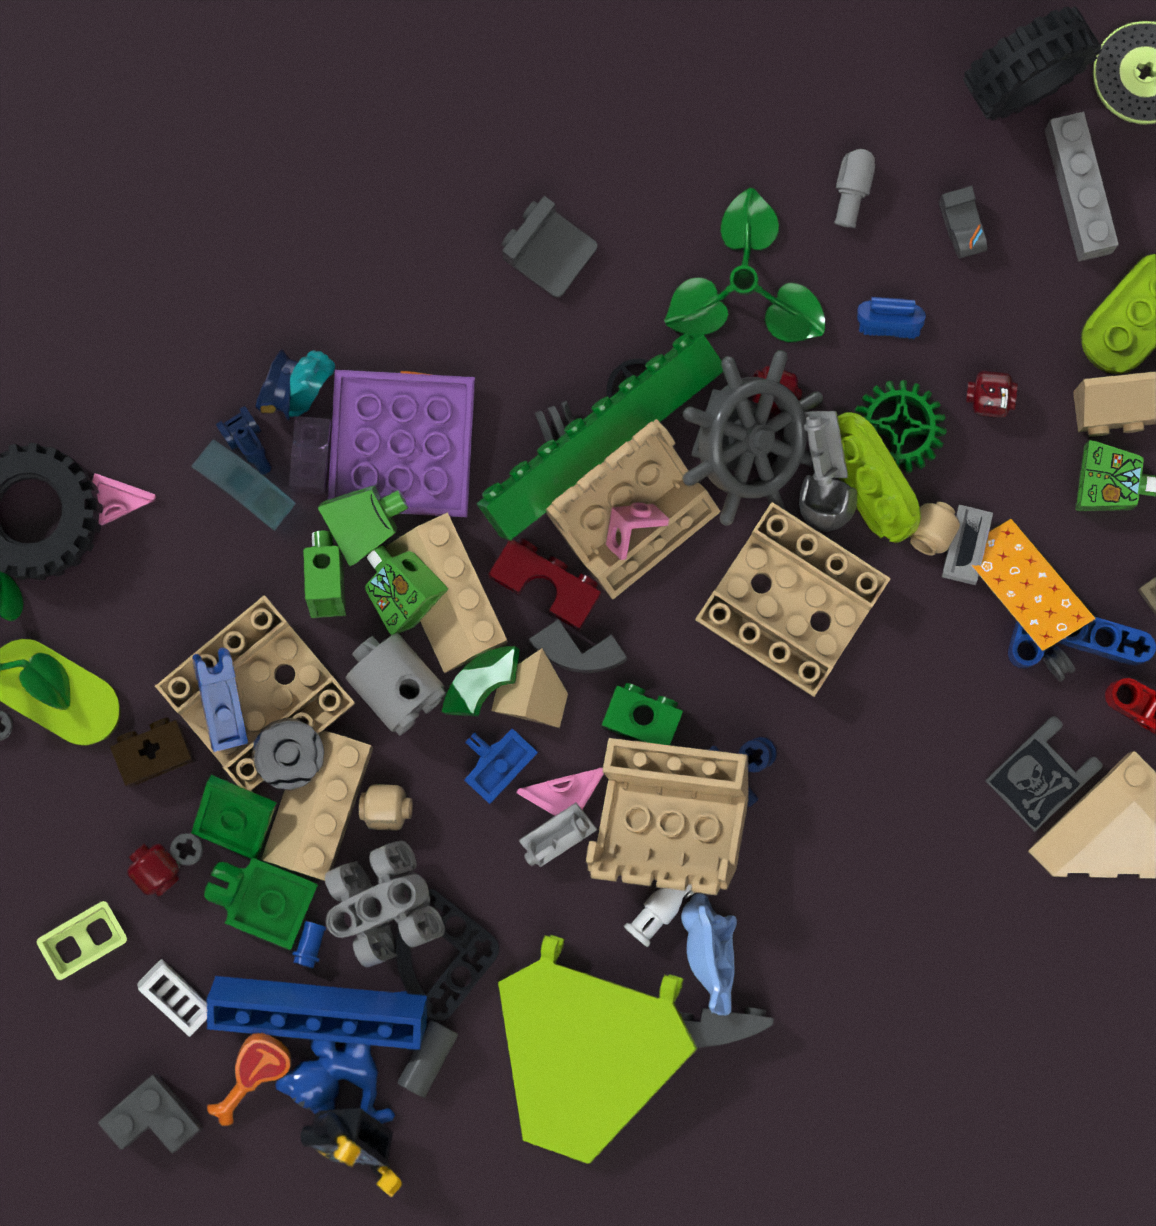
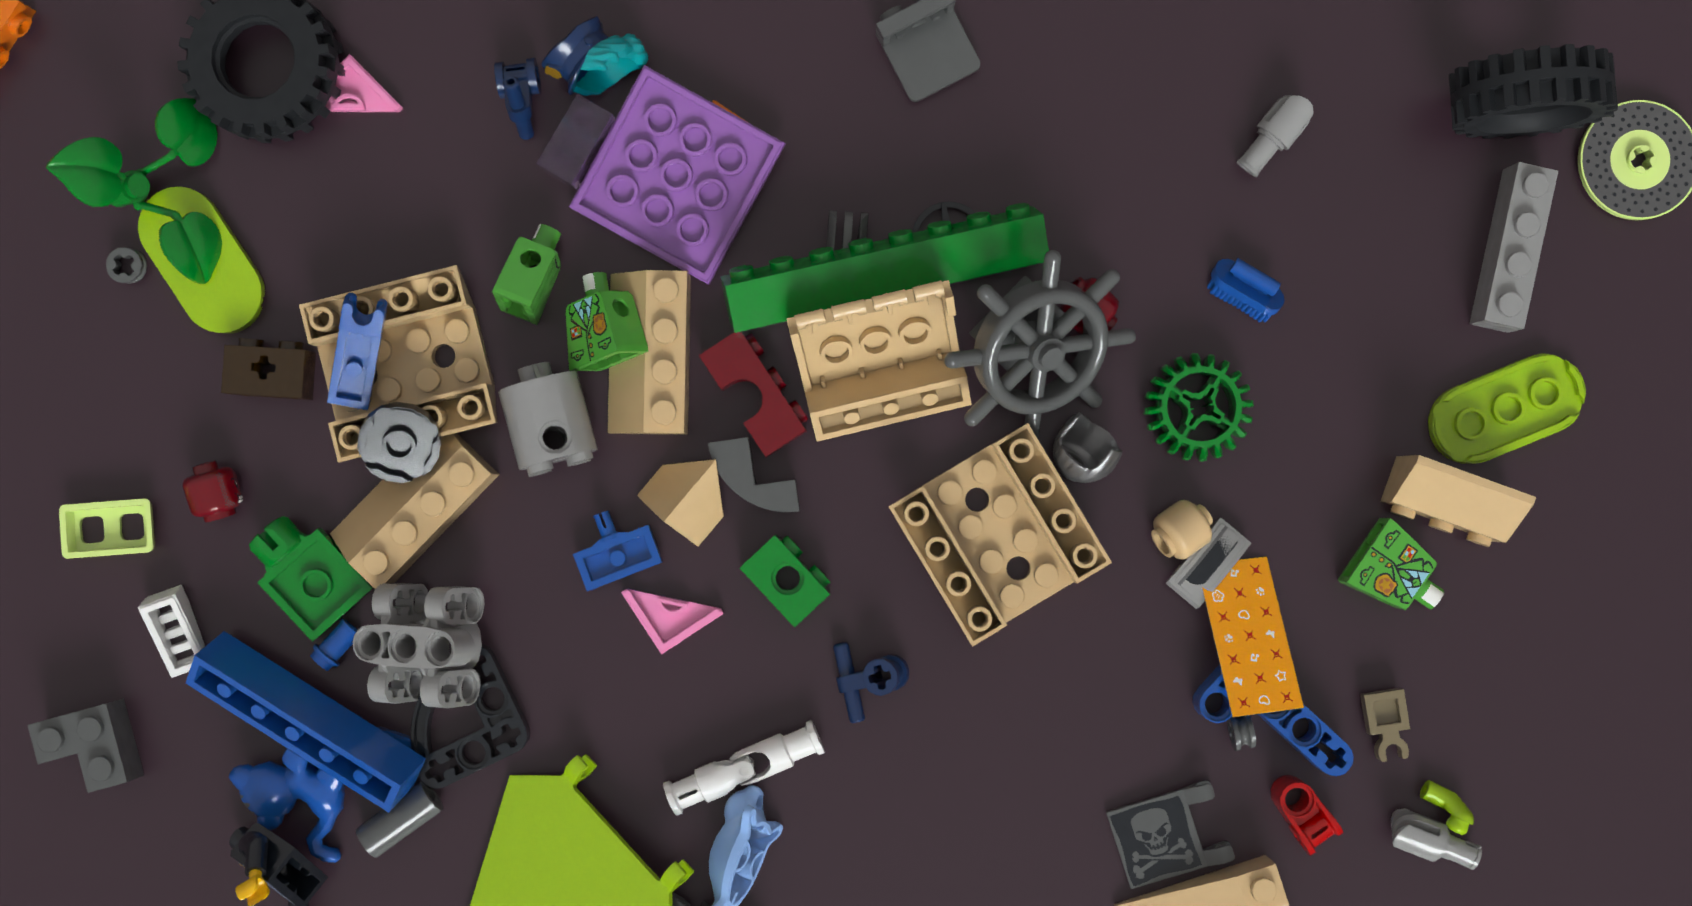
camera: 30 degrees right, 5 degrees up
(197, 845) = (271, 487): dark grey bush -> none
(233, 817) = (317, 478): green tile -> none
(243, 484) = (494, 140): clear light blue slope -> none
(258, 1061) = (220, 741): orange piece -> none
(362, 520) = (595, 235): bright green torso -> none
(385, 807) = (478, 543): tan head -> none
(479, 679) = (640, 458): tile -> none
(557, 835) = (639, 657): light grey hinge -> none
(628, 518) = (876, 369): bright pink bracket -> none
(670, 816) = (761, 701): tan slope -> none
(698, 308) = (1052, 179): green plant -> none
(825, 446) = (1112, 392): light grey hinge -> none
(879, 483) = (1146, 433): lime tile -> none
(963, 222) = (1371, 225): dark grey leg -> none
(992, 394) = (1312, 420): dark red head -> none

